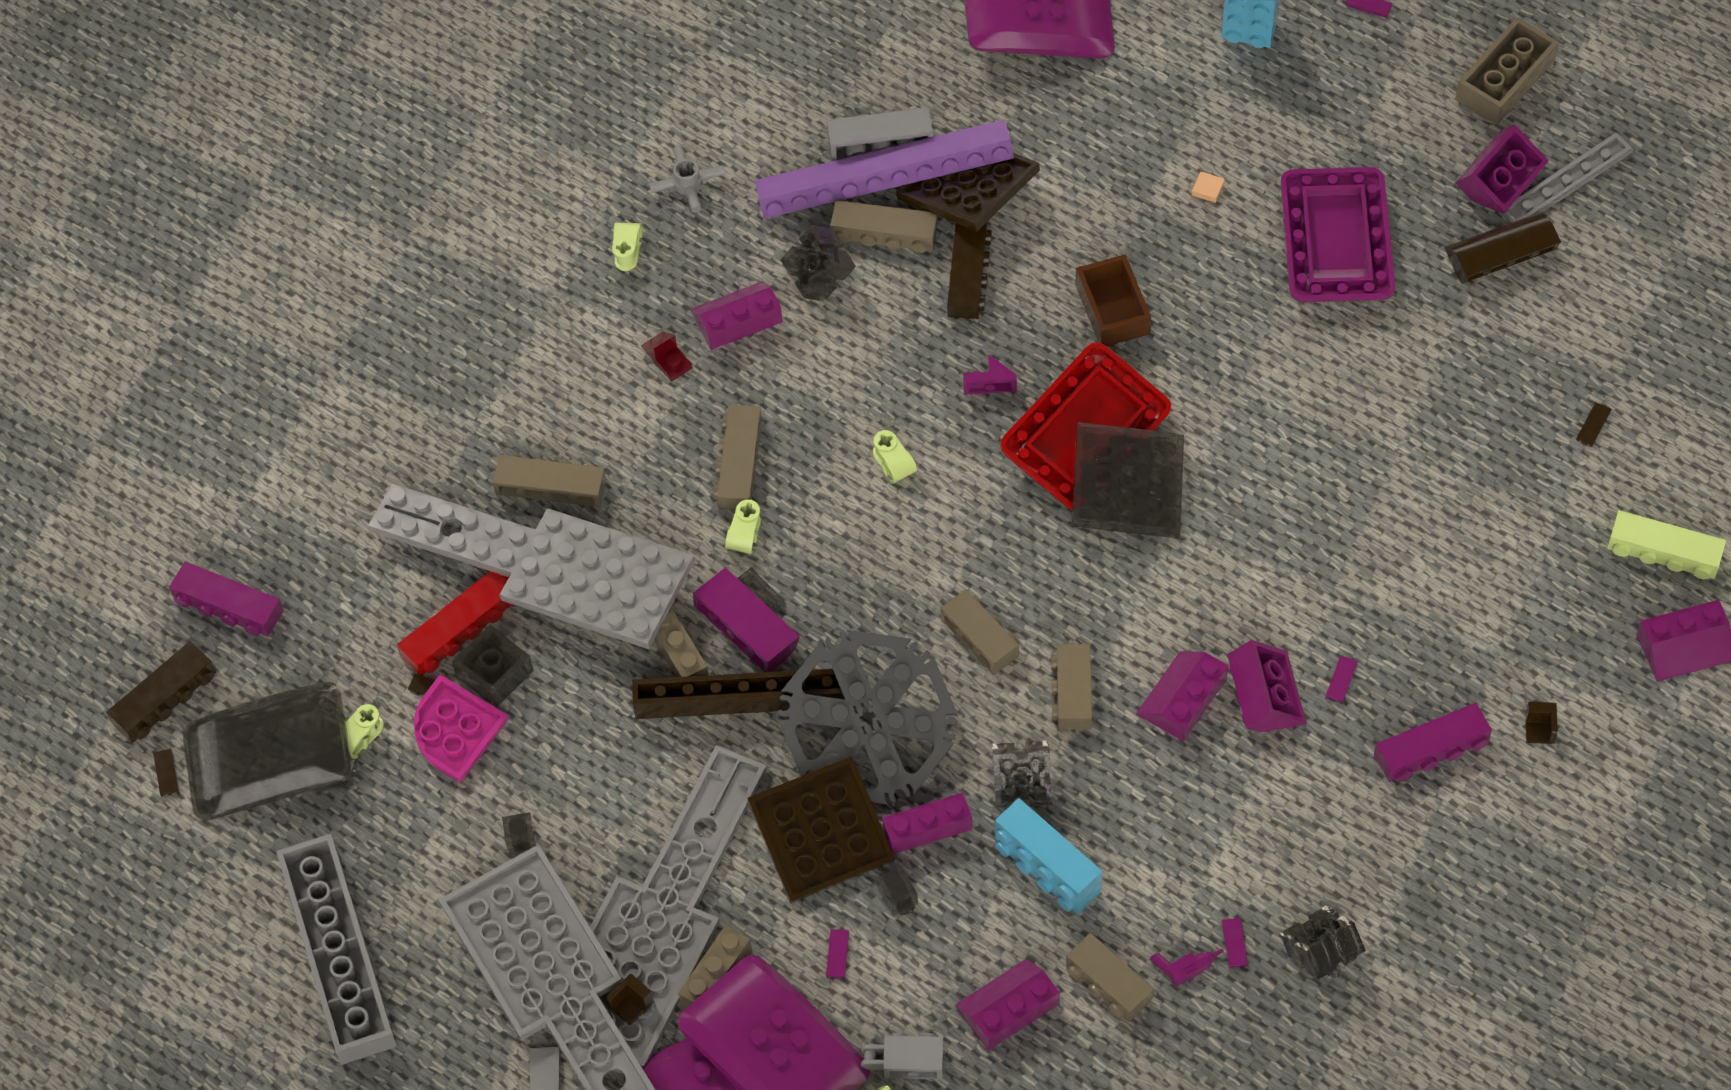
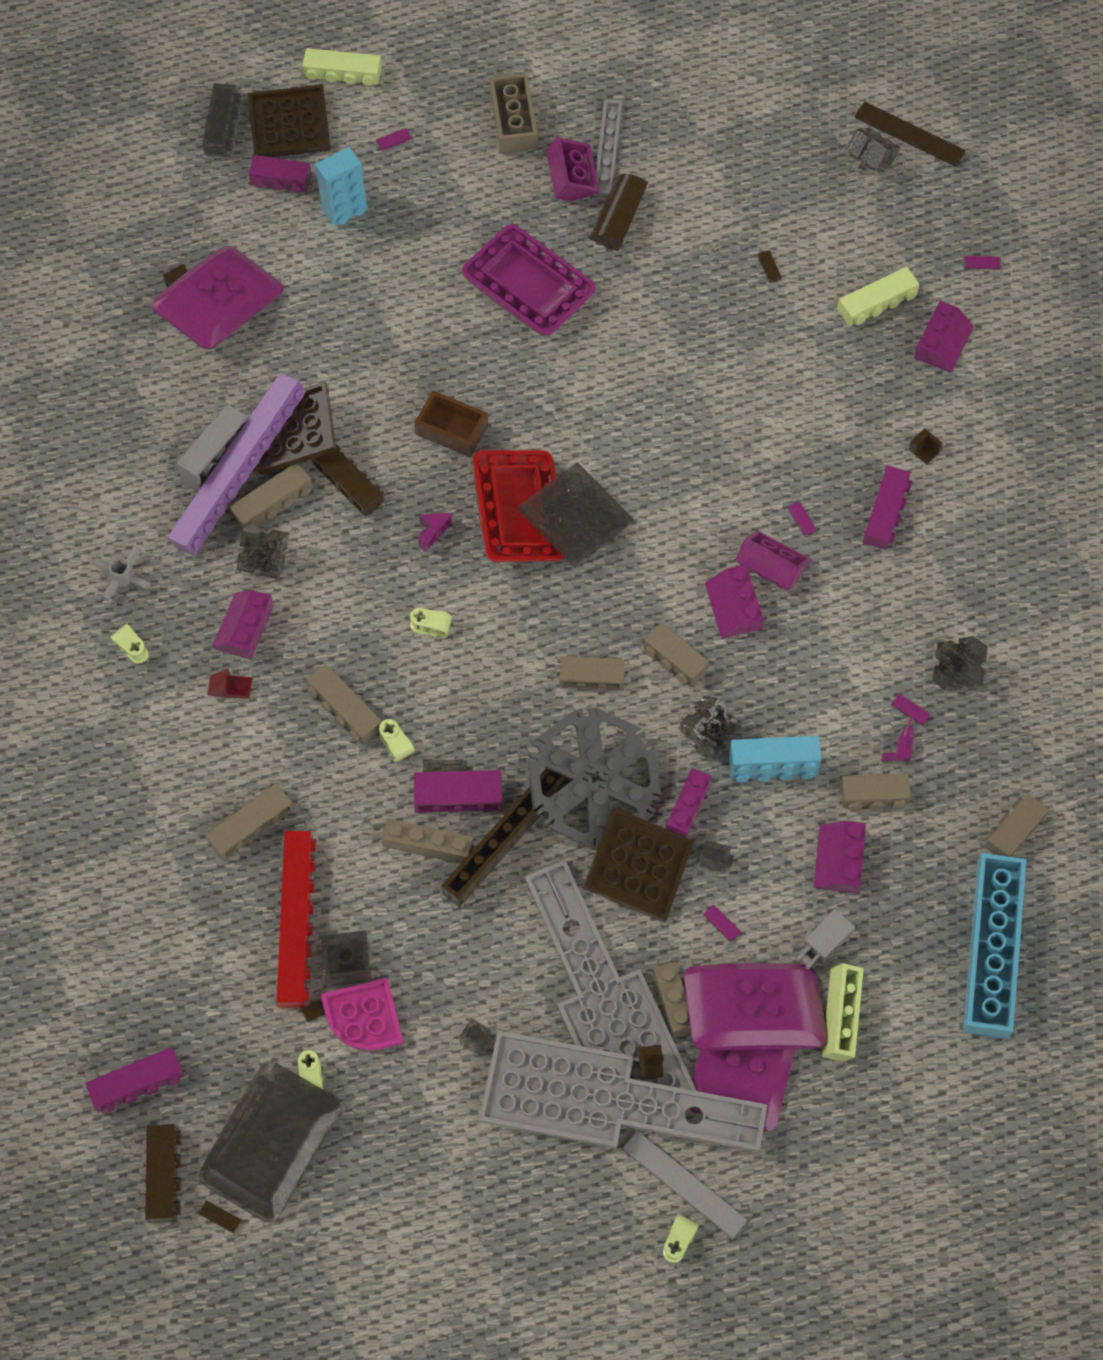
camera: 50 degrees left, 5 degrees up
(336, 949) = (450, 1209): light grey brick -> none
(558, 569) = (319, 864): light grey piece -> none
(1208, 187) = (424, 315): light nougat tile -> none

